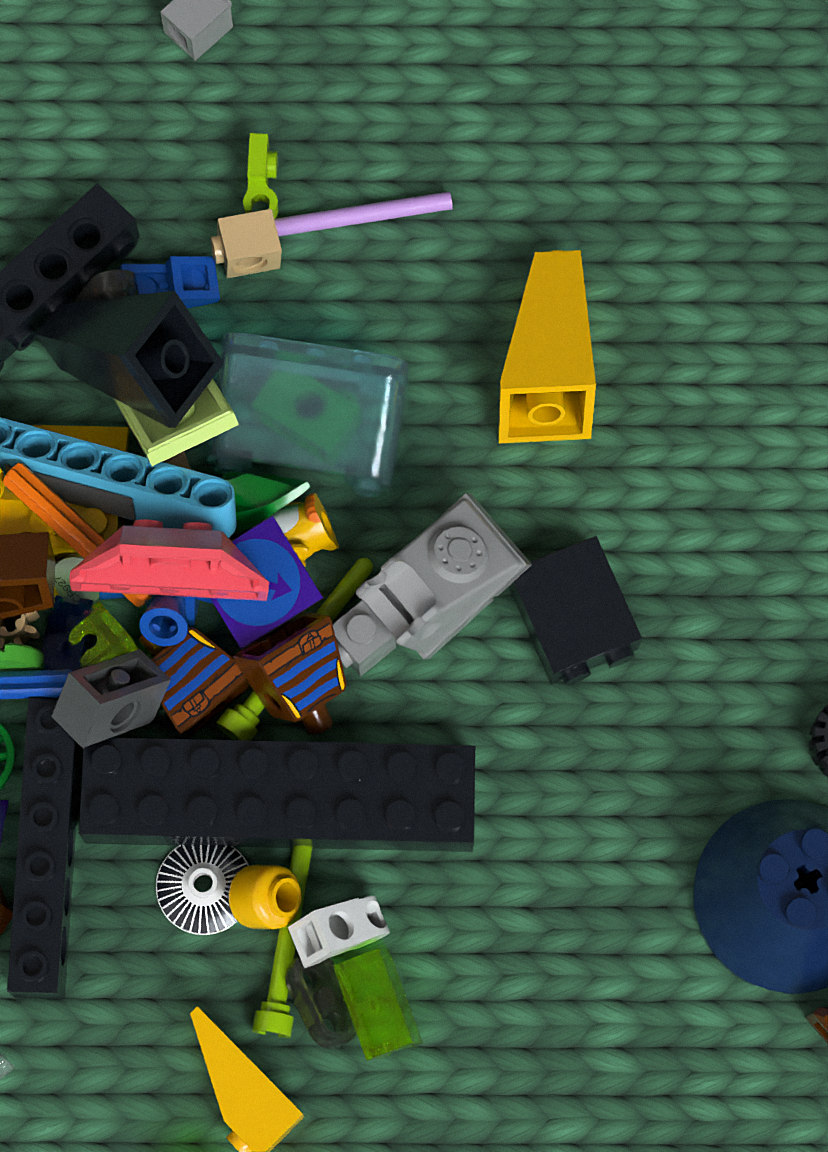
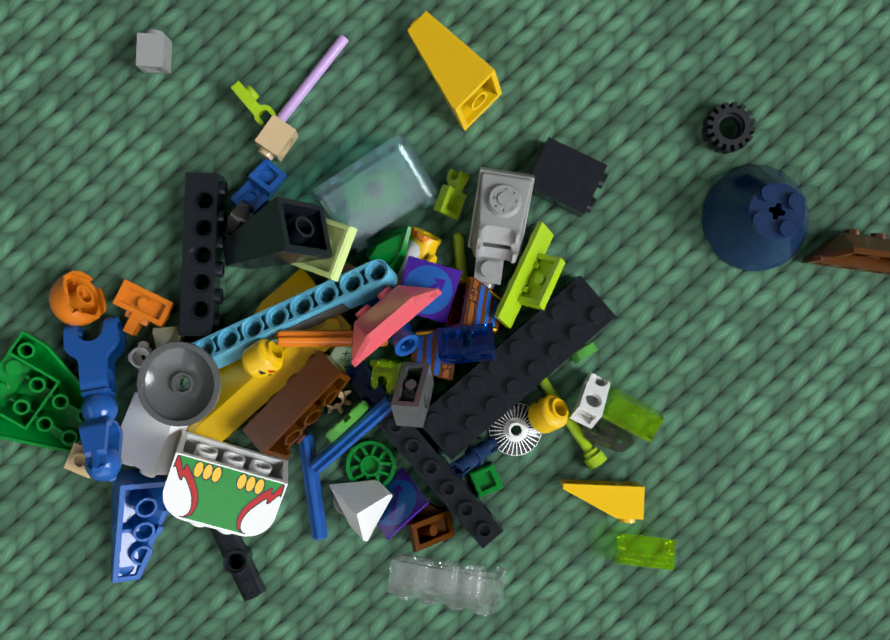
camera: 40 degrees left, 15 degrees up
(100, 916) = (485, 480): none -> green tile
(113, 861) = (474, 456): none -> dark blue pin
(240, 693) = (466, 344): none -> clear blue brick
(390, 861) = (584, 352): none -> bright green tile
(399, 505) = (451, 199): none -> lime plate
(408, 693) = (532, 279): none -> lime bracket

